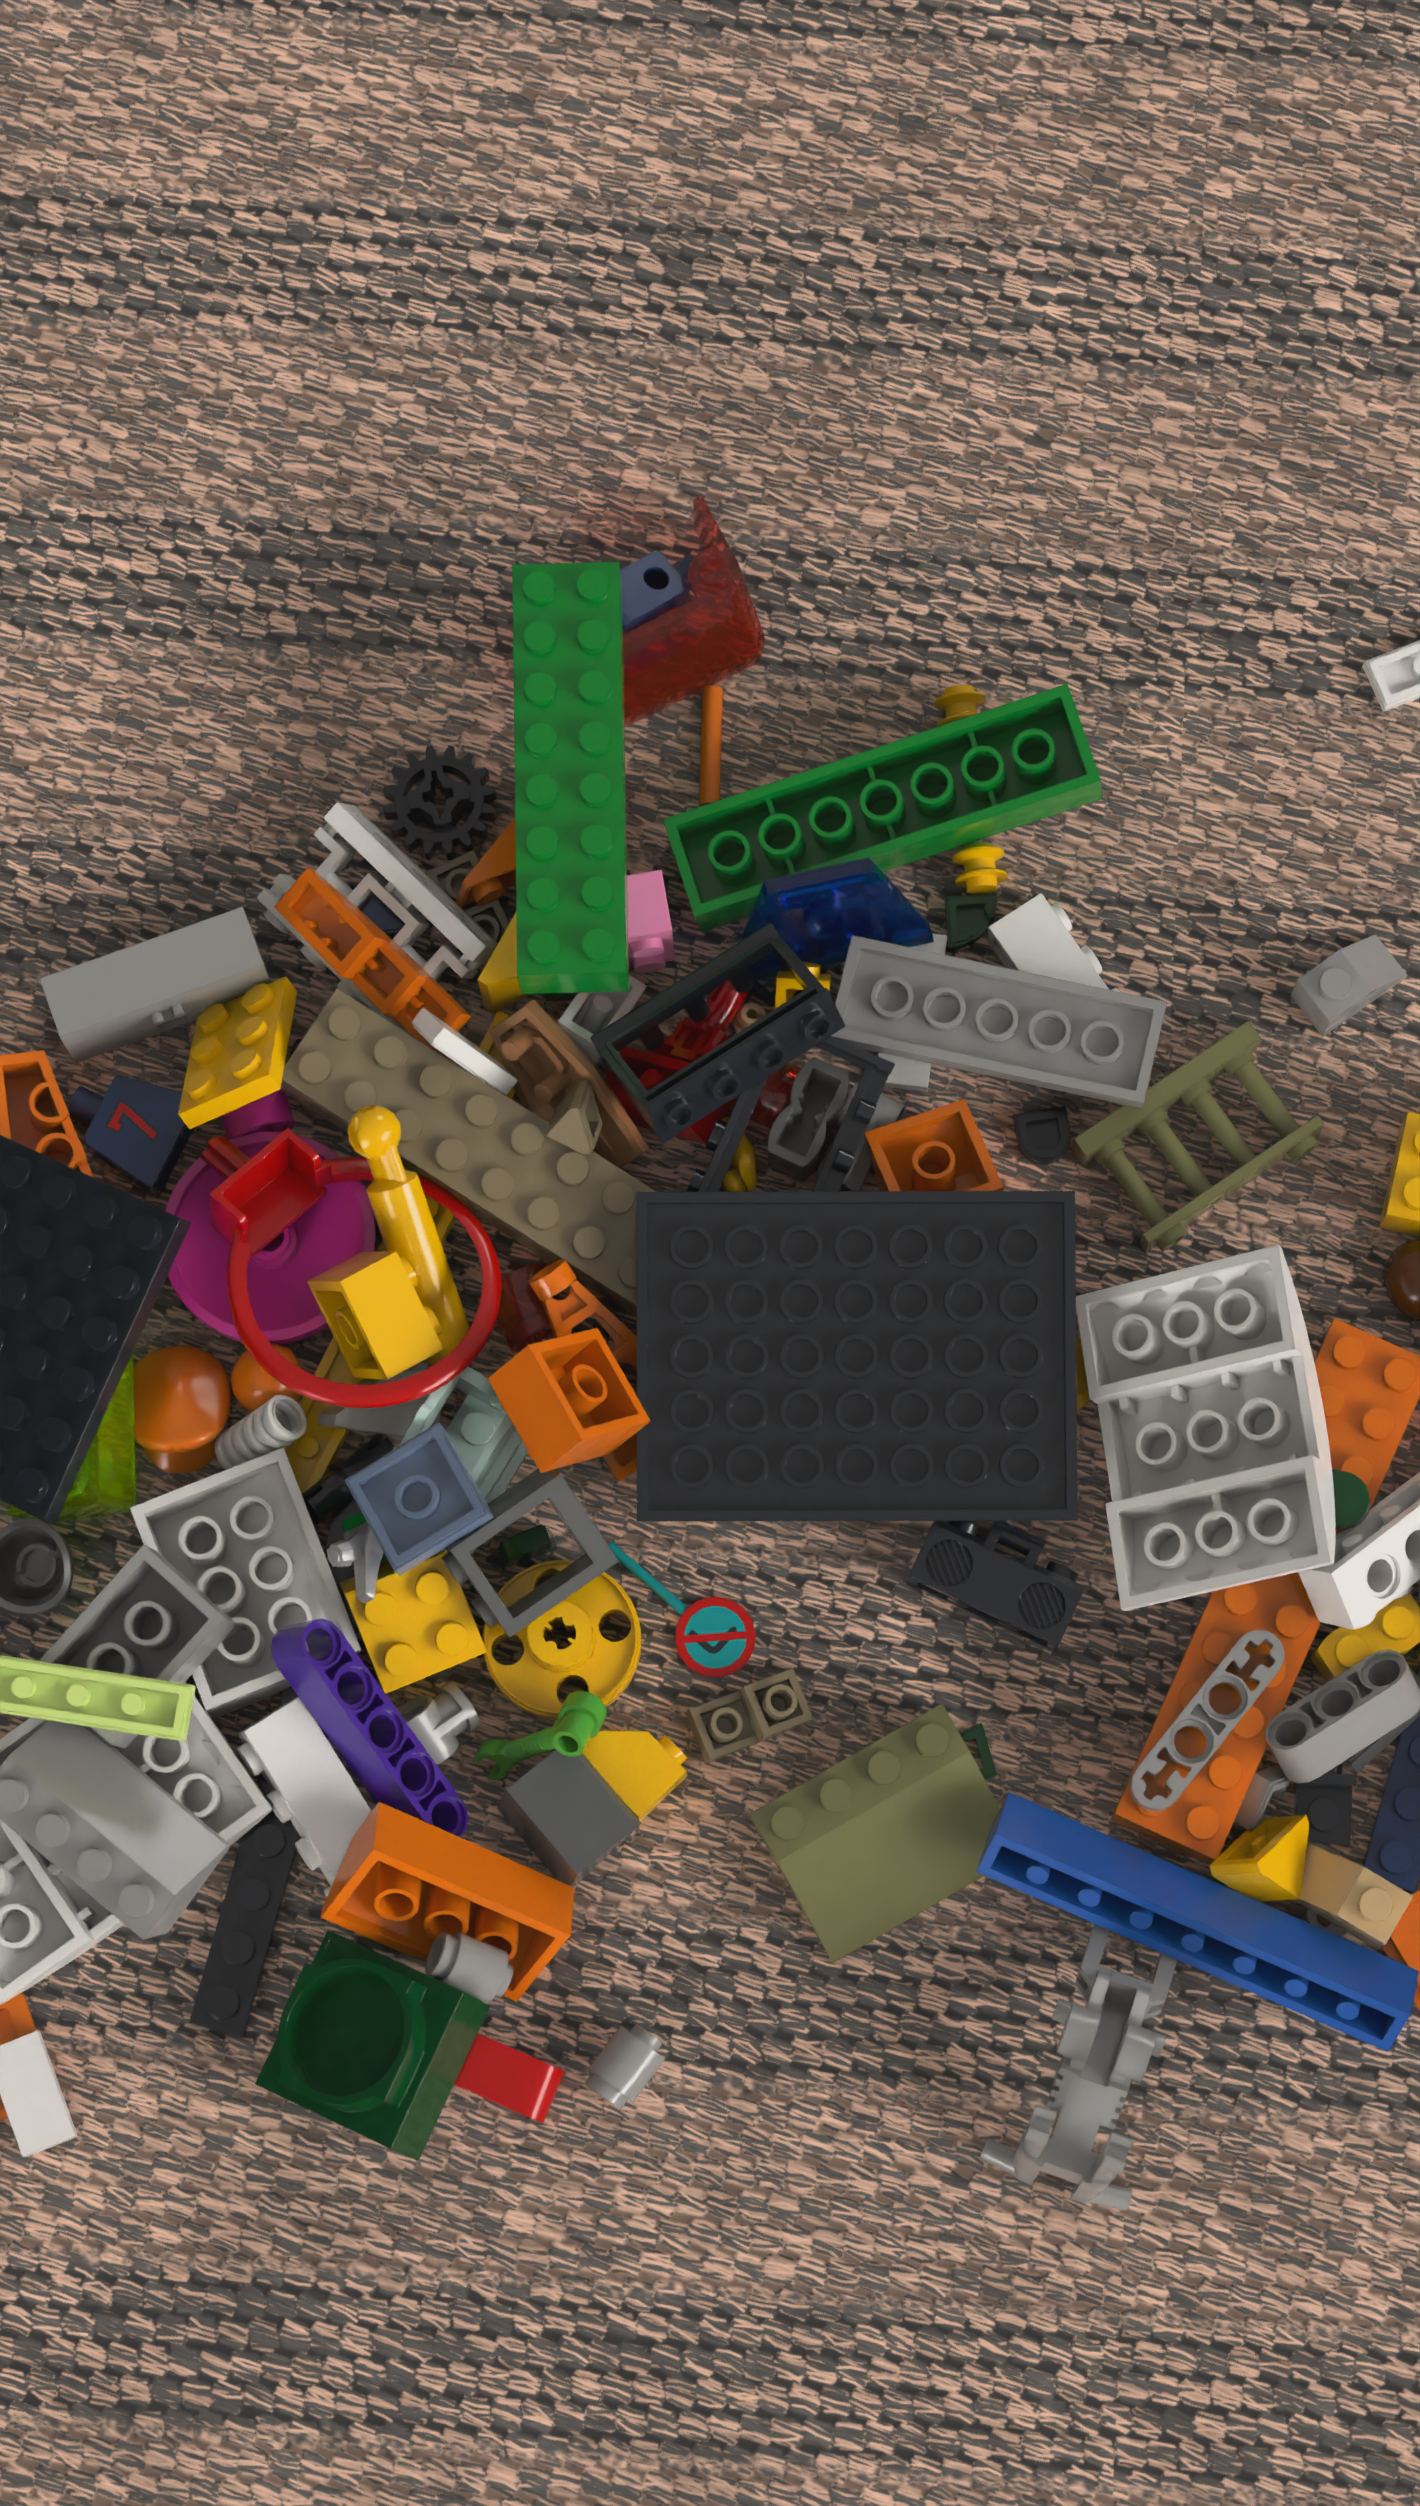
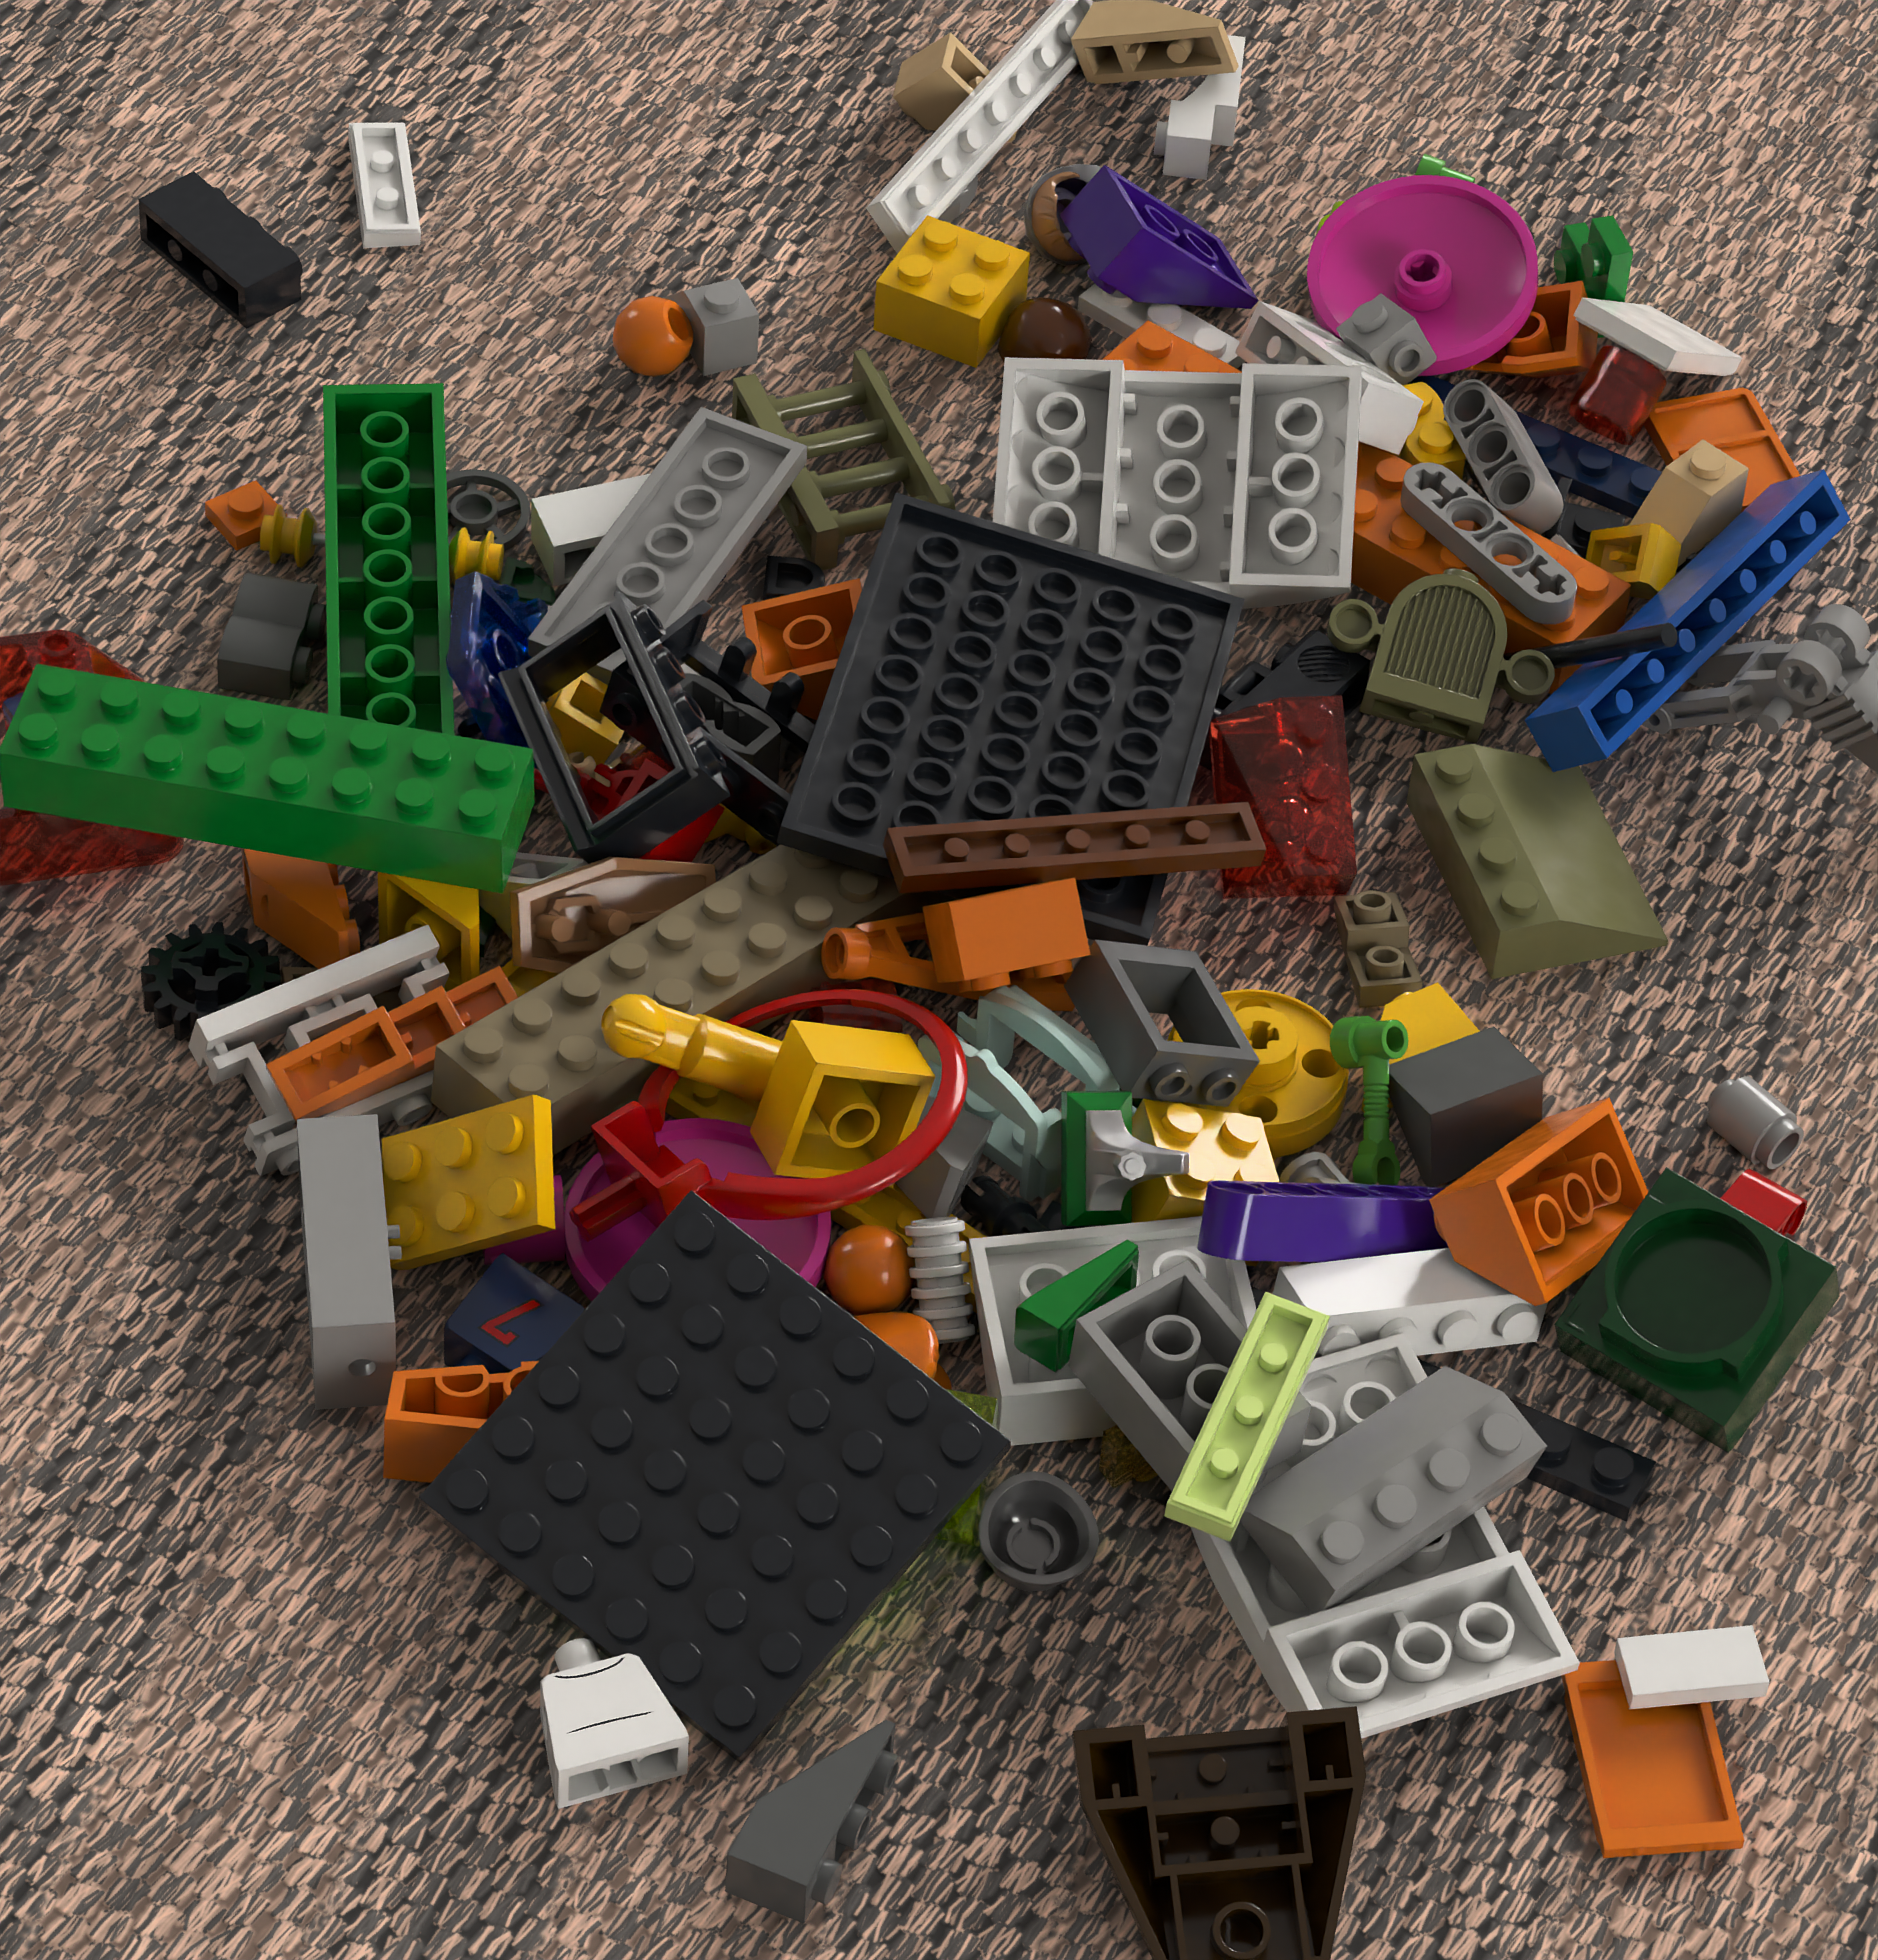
camera: 85 degrees left, 30 degrees down
(195, 1538) = (1049, 1317): none -> green slope
(419, 1499) = (1087, 1074): sand blue tile -> none
(463, 1051) = (536, 963): white tile -> none
(469, 1966) = (1622, 1186): light grey brick -> none
(577, 1119) = (662, 883): dark tan slope -> none
(693, 1436) = (1073, 847): none -> reddish brown plate
(712, 1634) = (1274, 963): piece -> none
(833, 726) = (269, 636): none -> dark grey brick
(860, 1603) = (1295, 776): none -> clear red slope
(987, 669) = (241, 513): none -> orange plate
(1049, 854) = (480, 510): none -> dark grey wheel
(1079, 1704) = (1439, 655): none -> olive piece
(1099, 1825) = (1608, 646): none -> black bar
(1297, 934) = (652, 336): none -> orange piece
(1299, 550) = (220, 249): none -> black brick

